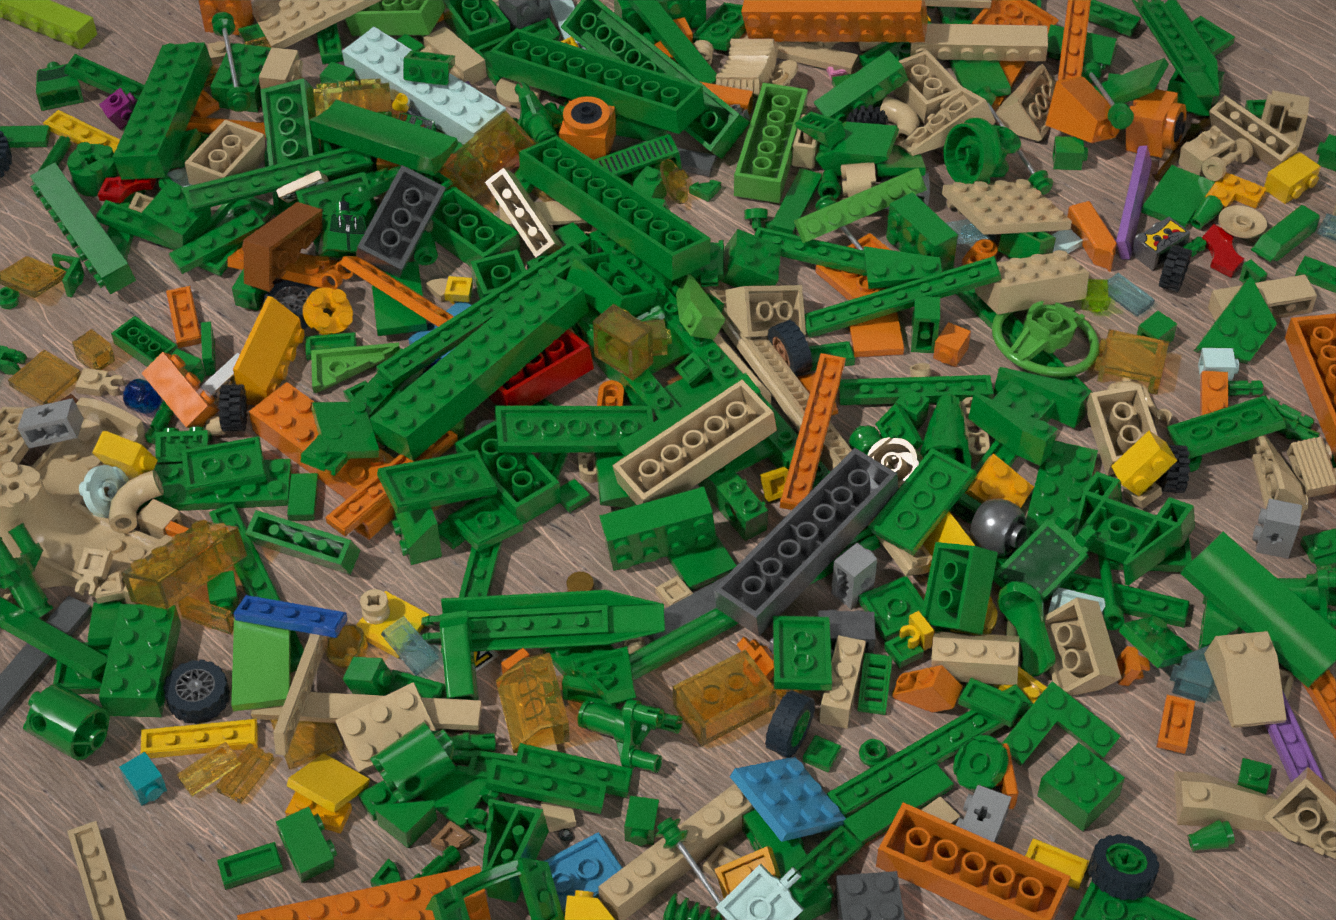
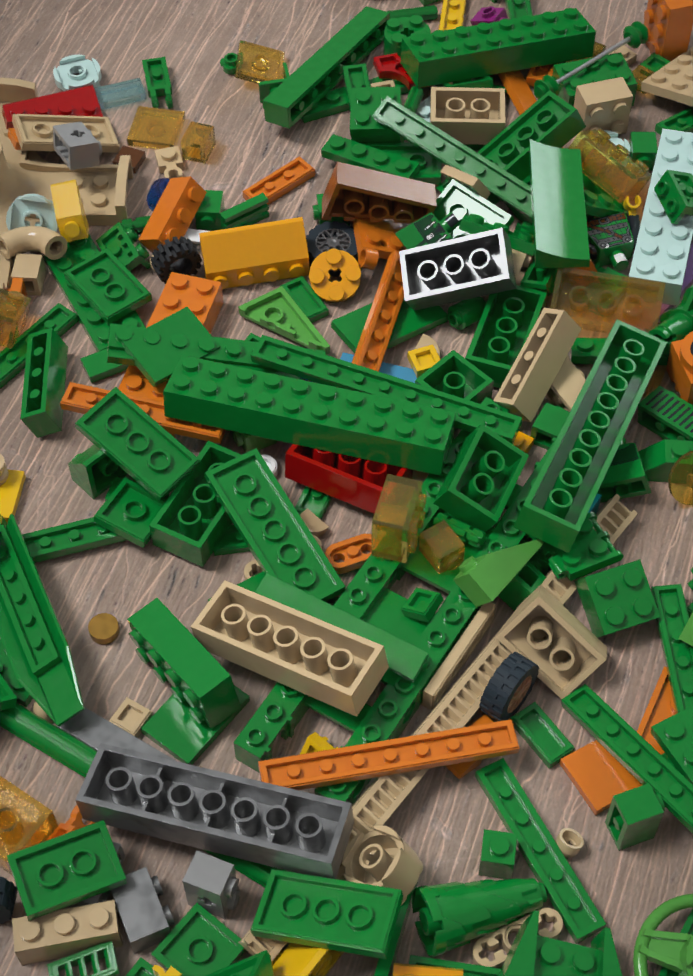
camera: 65 degrees right, 5 degrees up
(142, 341) = (227, 169): green piece -> none
(573, 495) = (215, 571): green tile -> none
(864, 438) = (423, 826): green piece -> none
(897, 424) = (448, 853): green bracket -> none
(952, 344) = (630, 861): orange brick -> none

